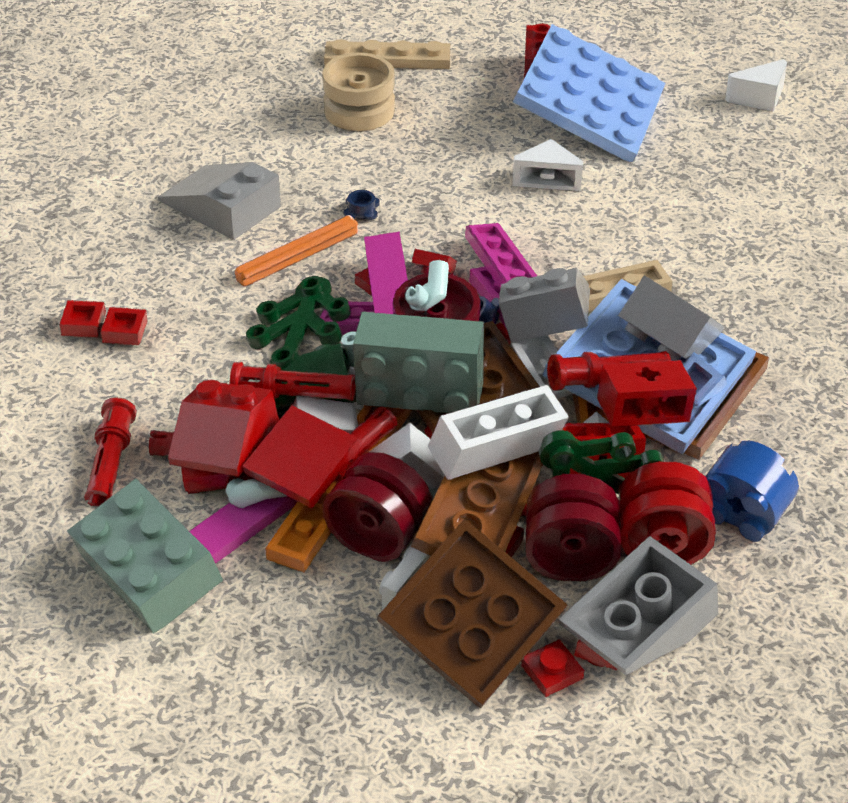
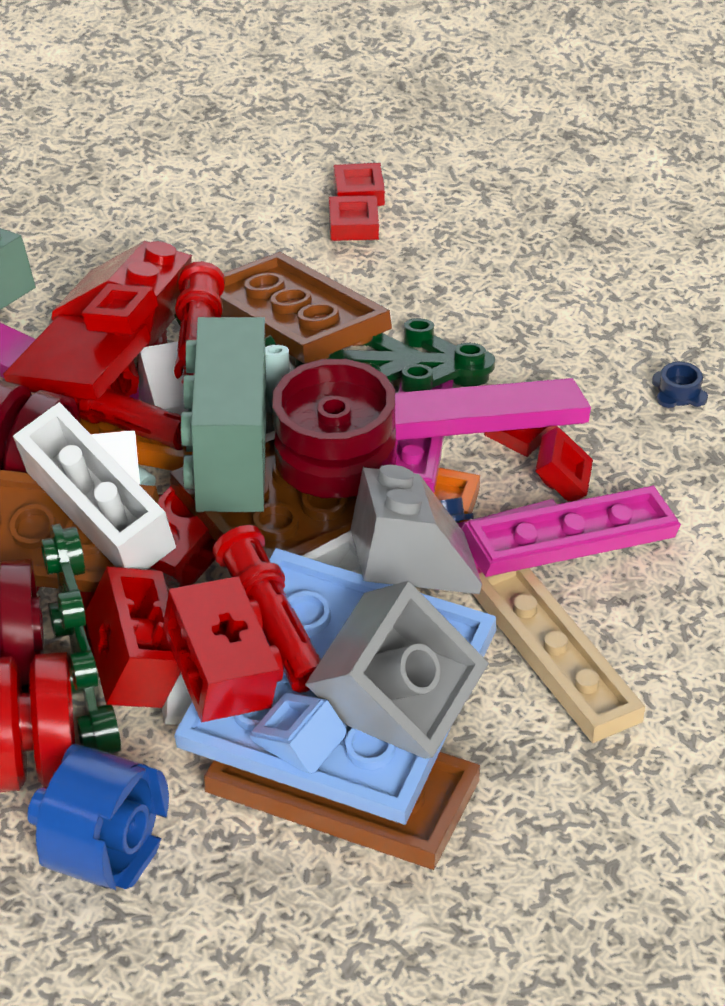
camera: 80 degrees right, 0 degrees up
(112, 438) = (109, 244): red pin -> none
(226, 196) = (640, 259): light grey slope -> none
(268, 337) = (302, 307): none -> dark orange plate
(284, 409) = (120, 309): none -> red plate
(296, 250) = (561, 341): orange axle -> none
(432, 292) = (348, 388): light aqua arm -> none

